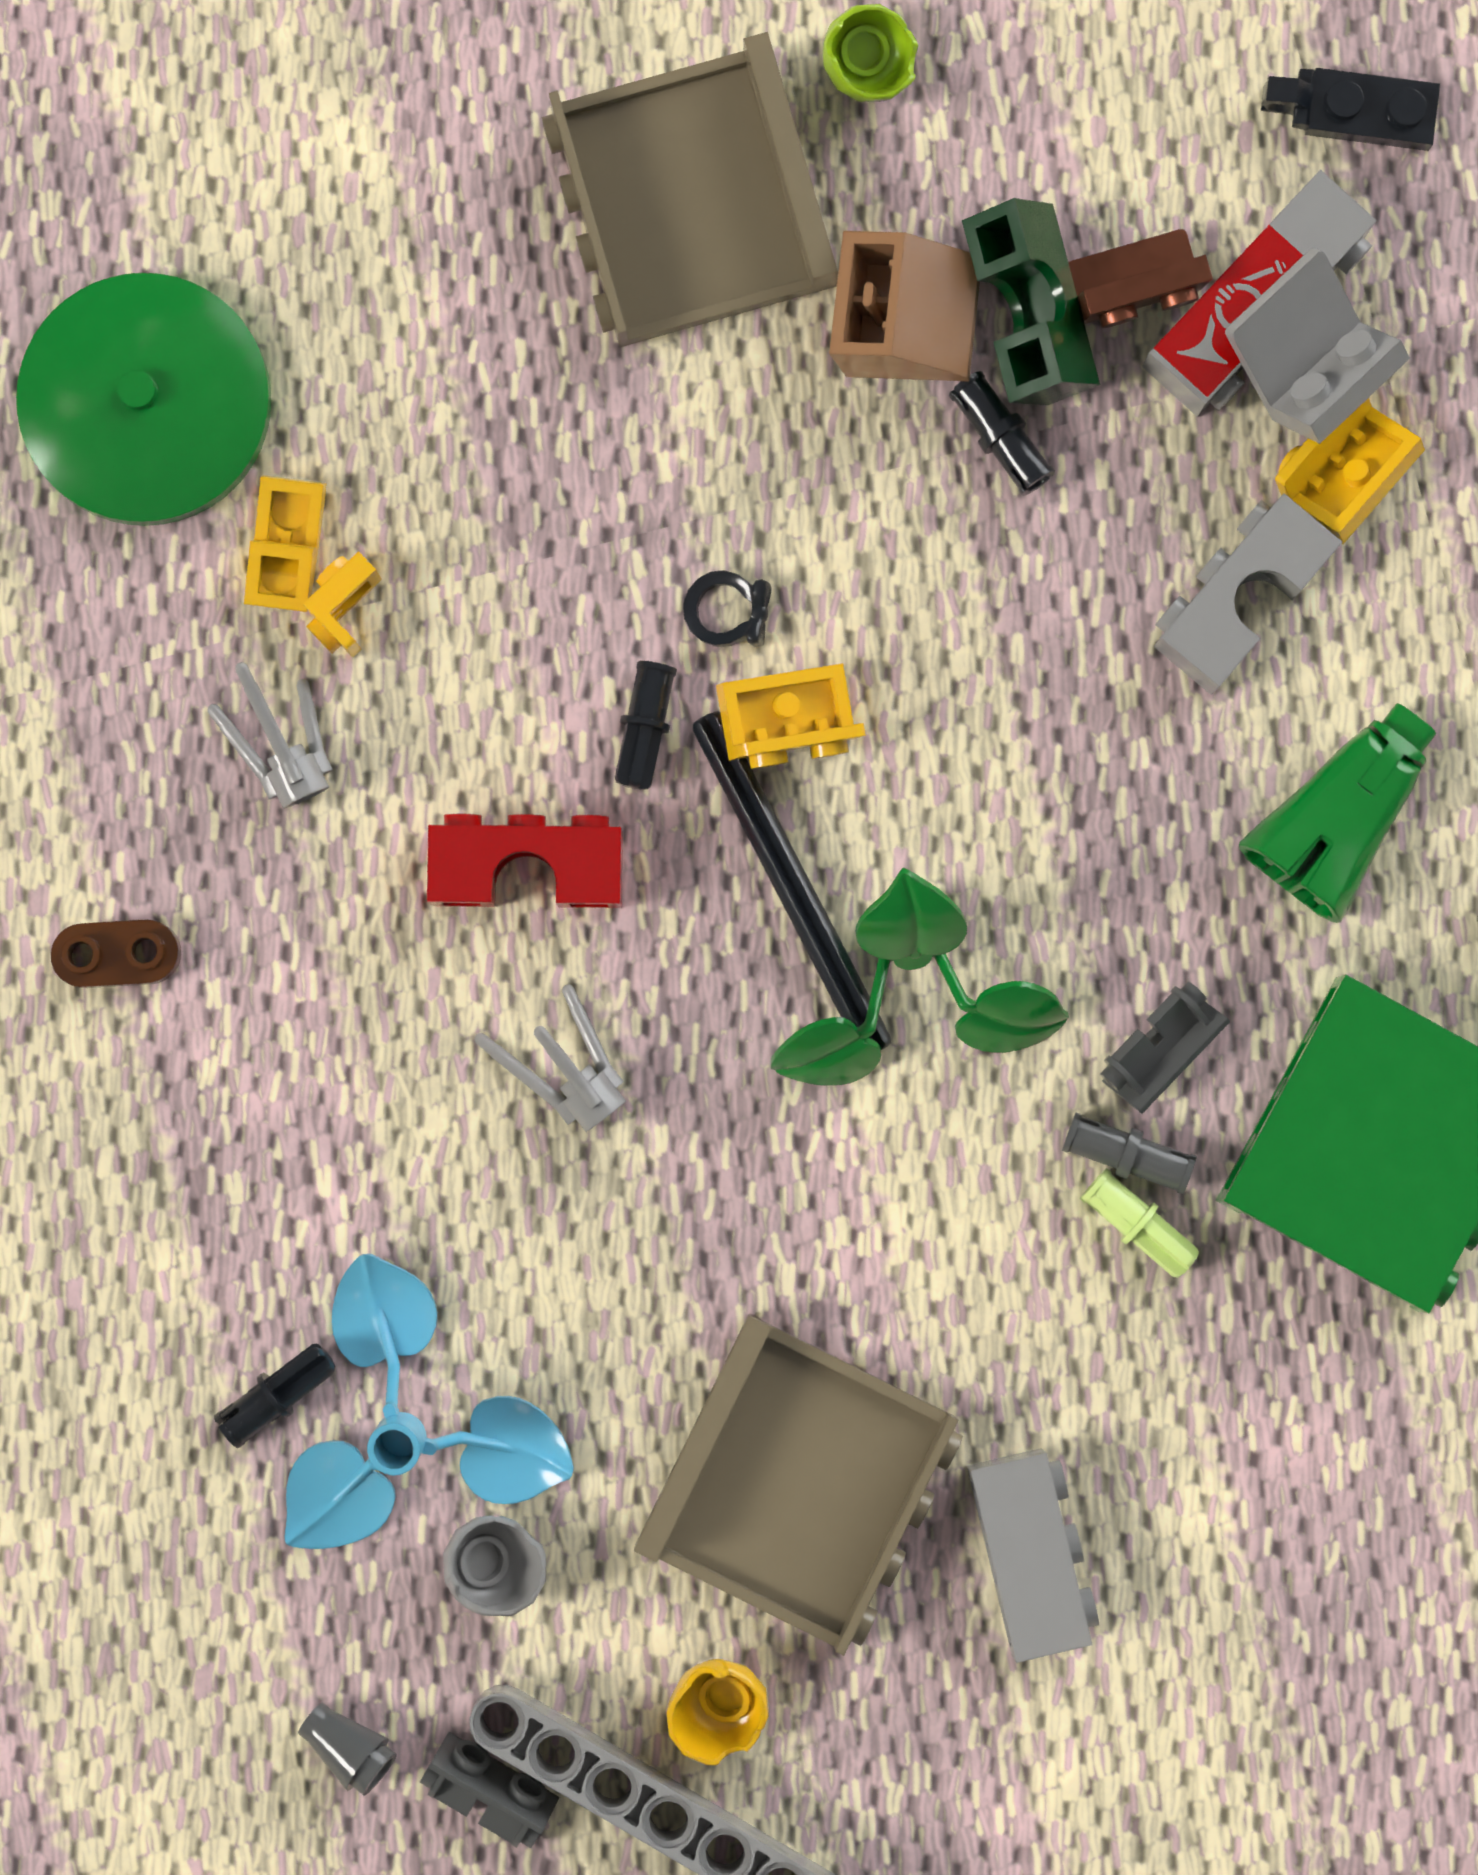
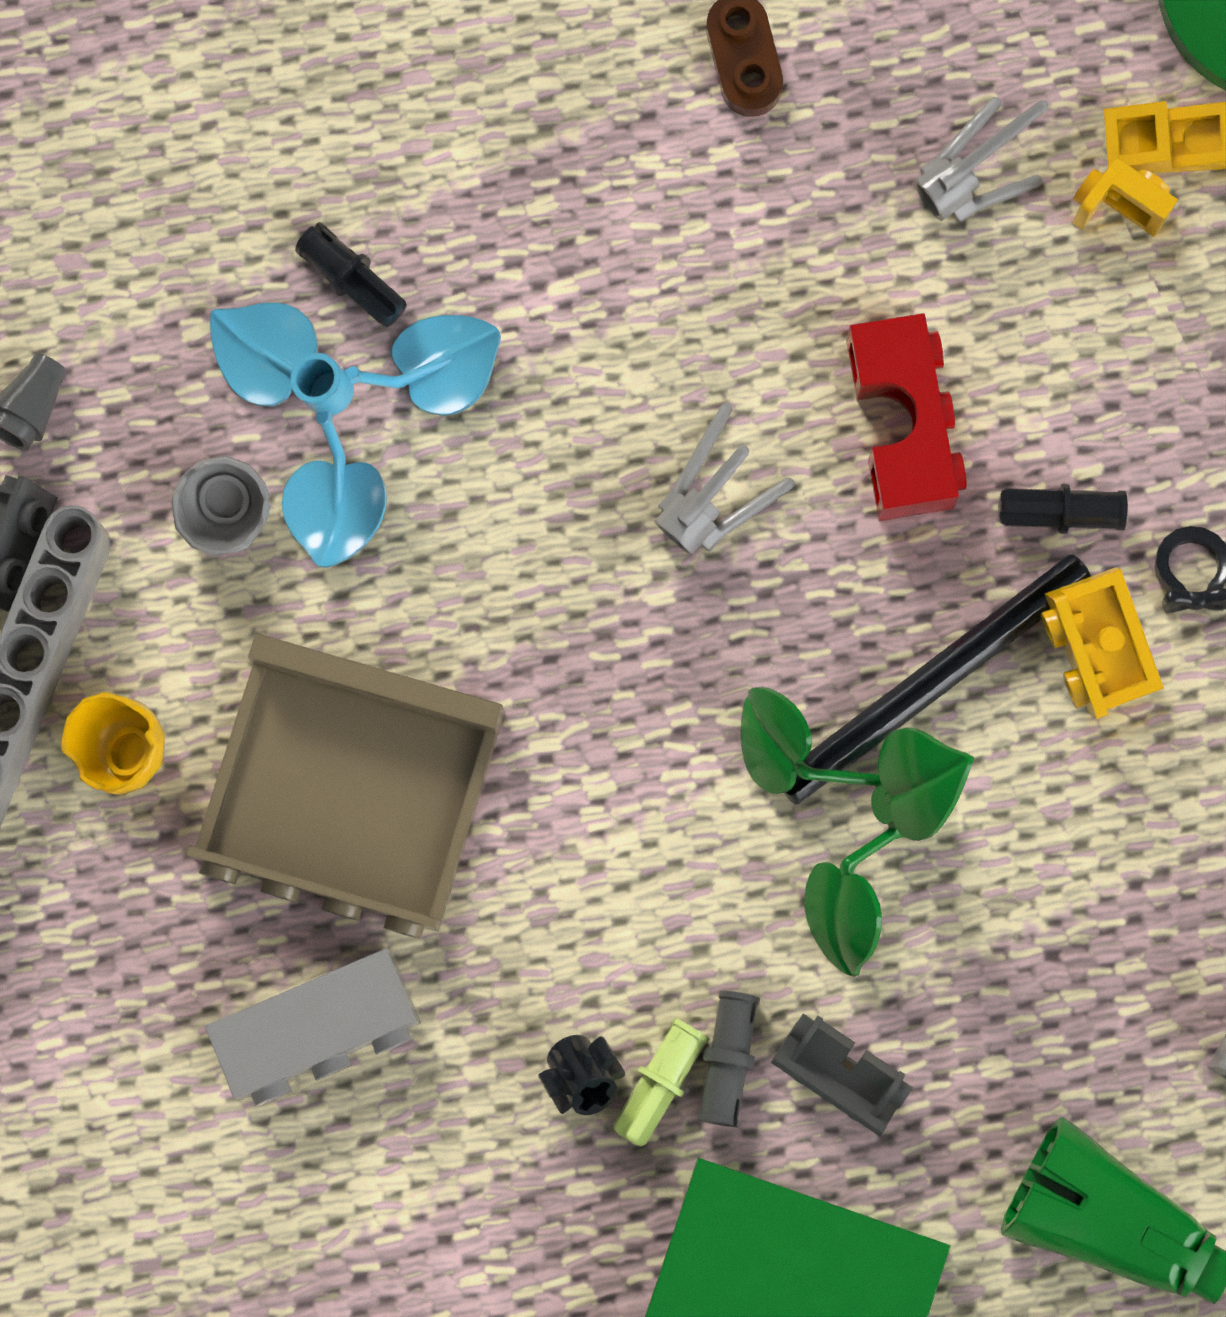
camera: 85 degrees right, 5 degrees down
(1122, 1299) = (581, 1075): none -> black gear

